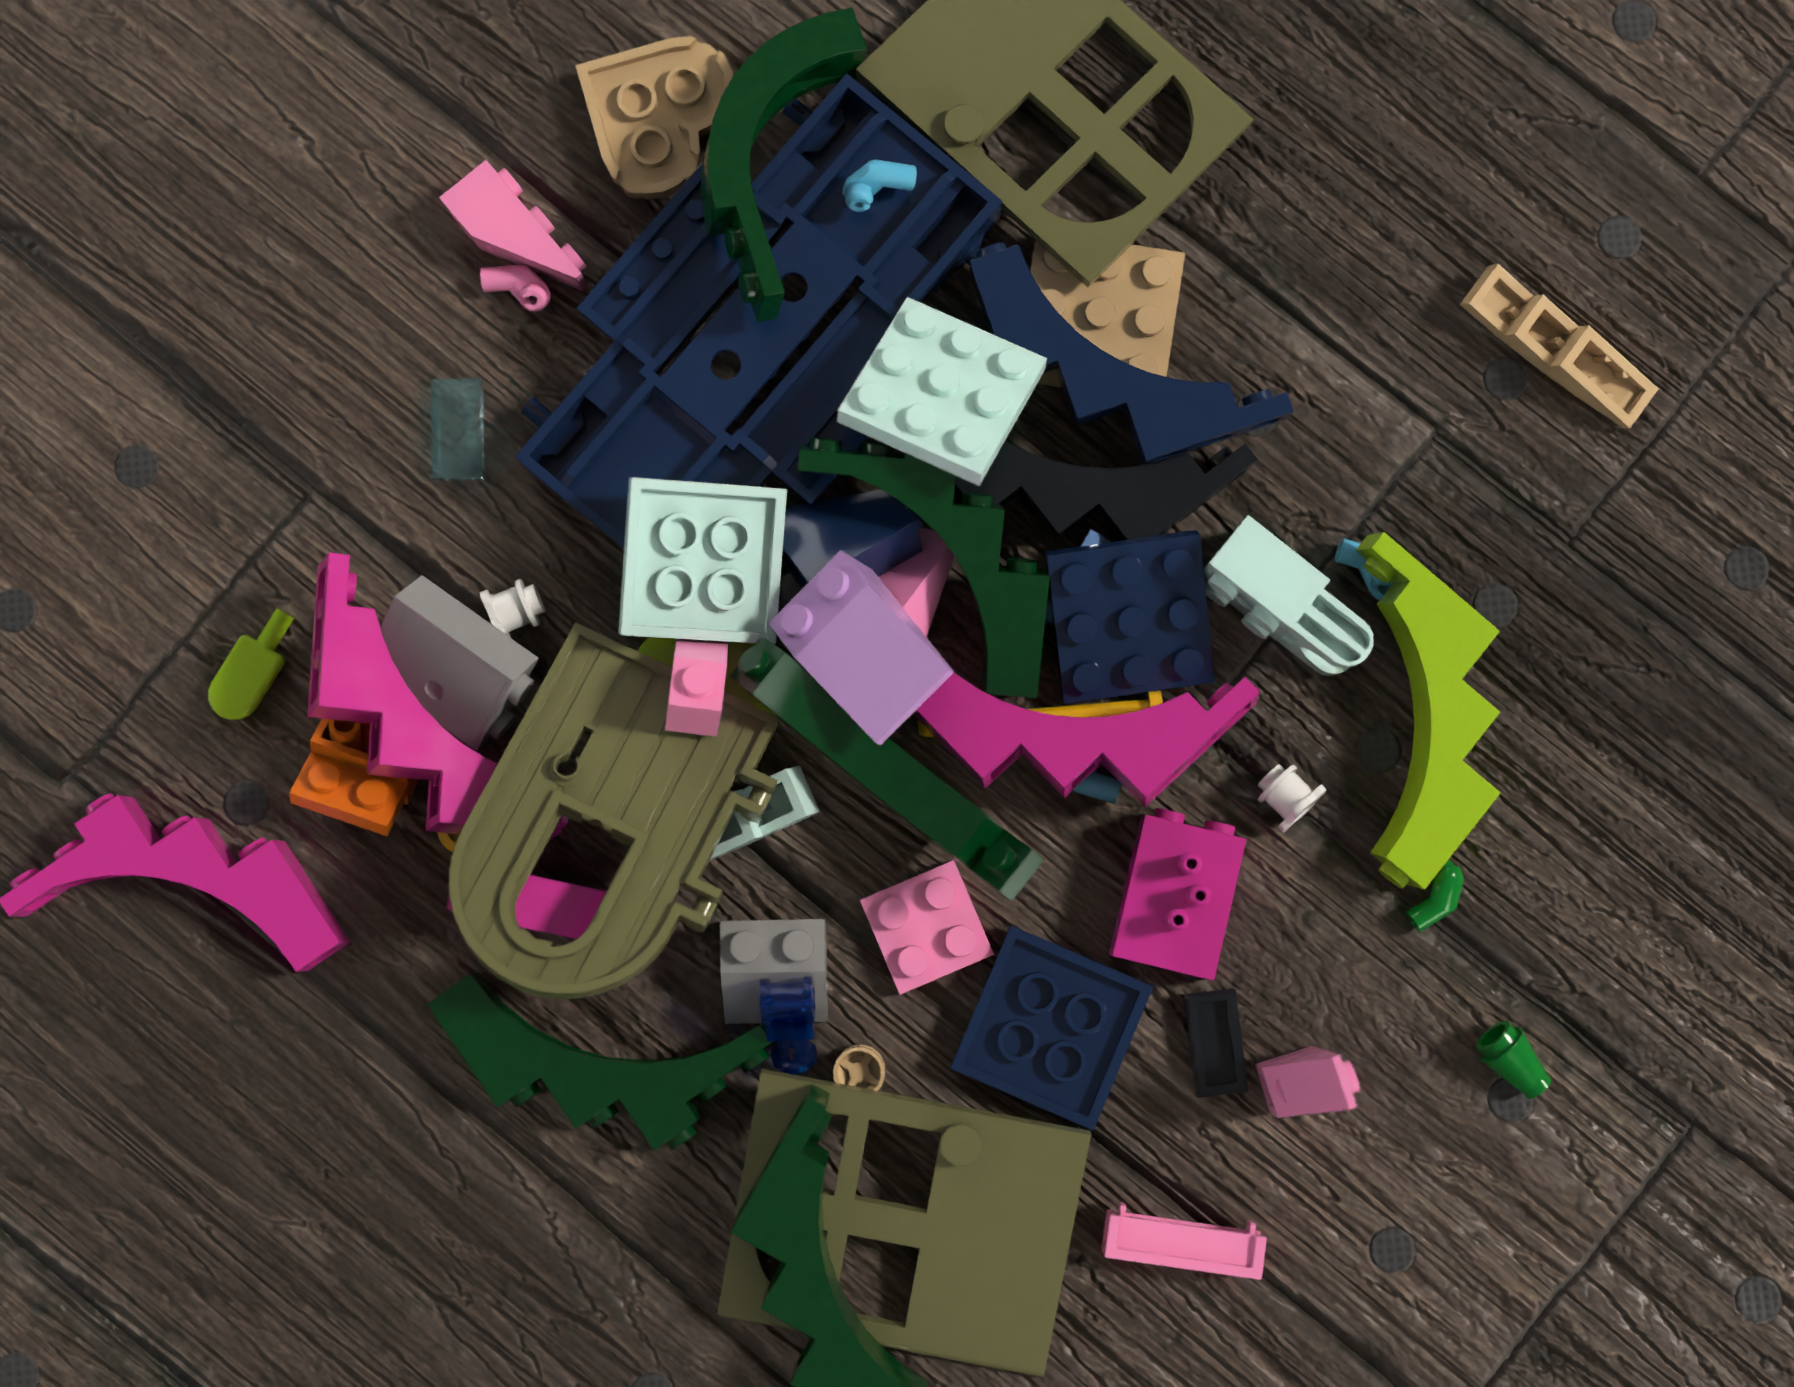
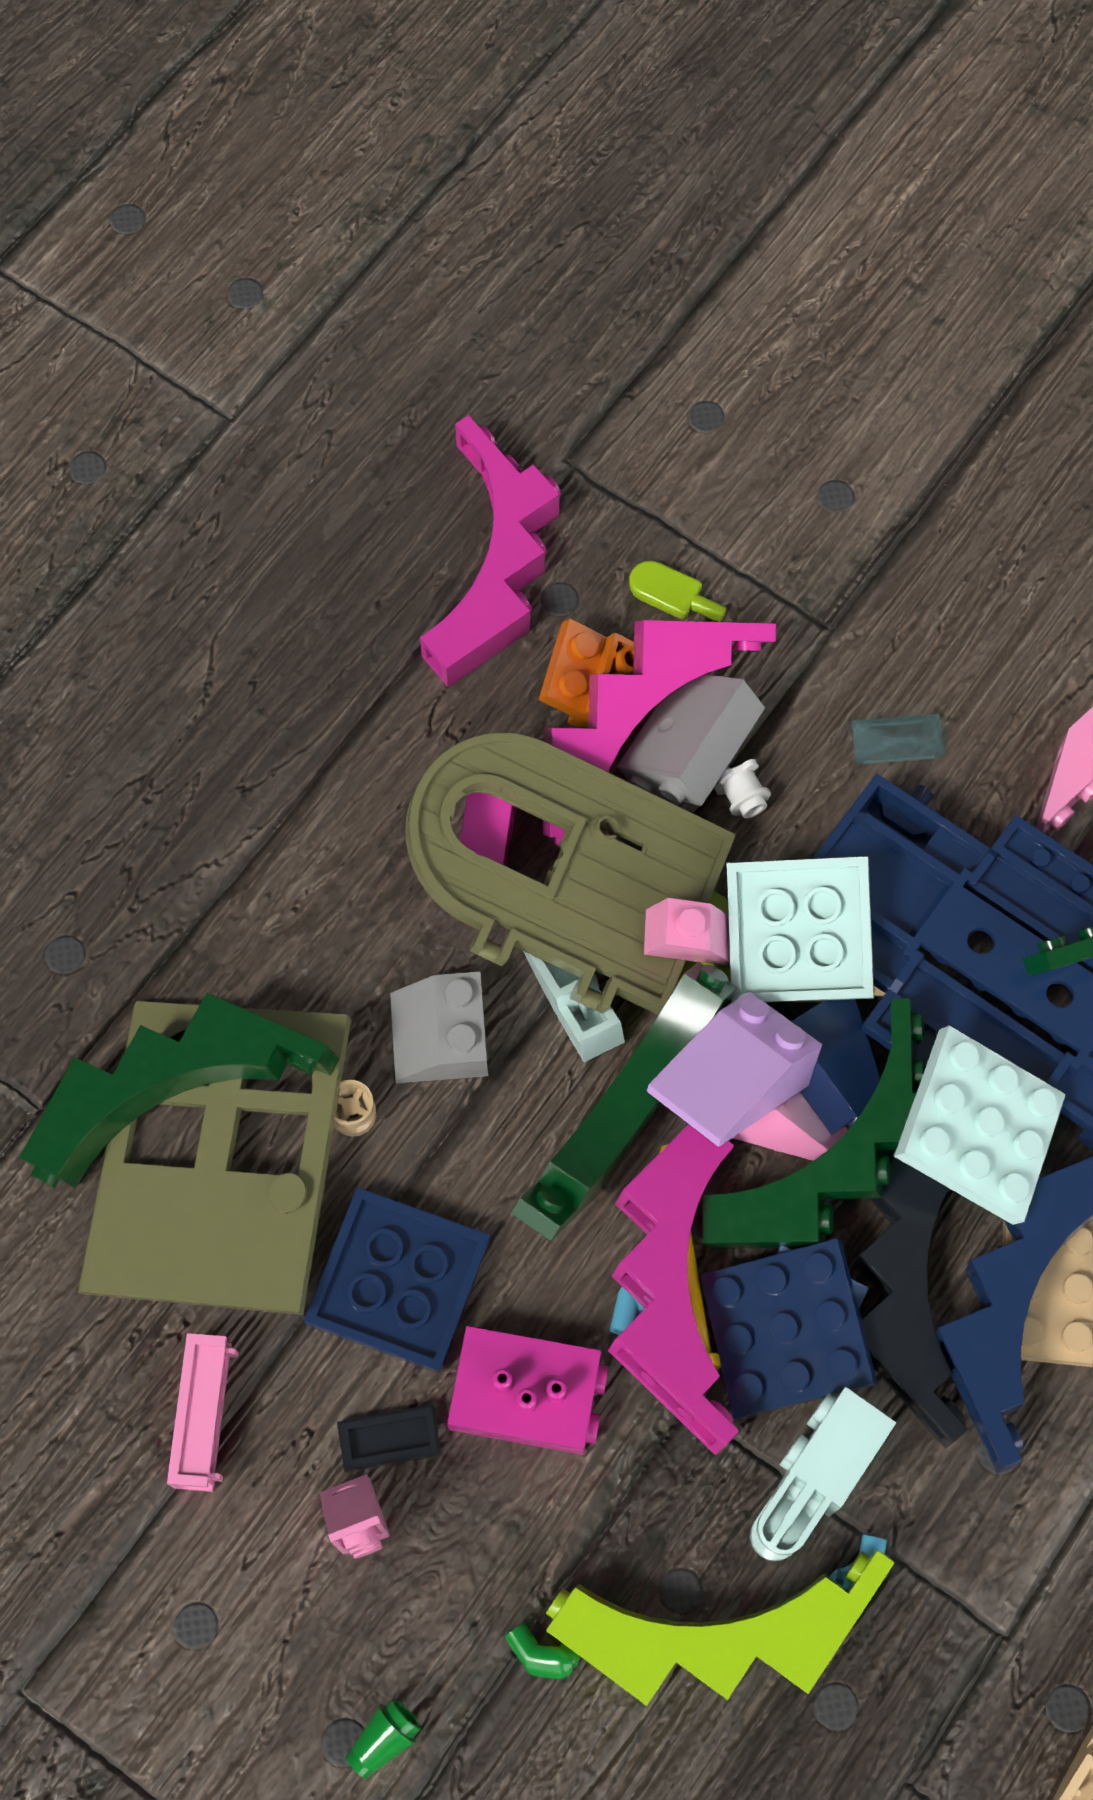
camera: 85 degrees right, 15 degrees down
(513, 1055) = (351, 822): dark green arch -> none
(520, 281) = (1035, 778): bright pink arm -> none
(789, 1021) = (398, 1038): clear blue connector -> none
(926, 927) = (483, 1163): bright pink plate -> none
(1288, 794) = (629, 1495): white brick -> none

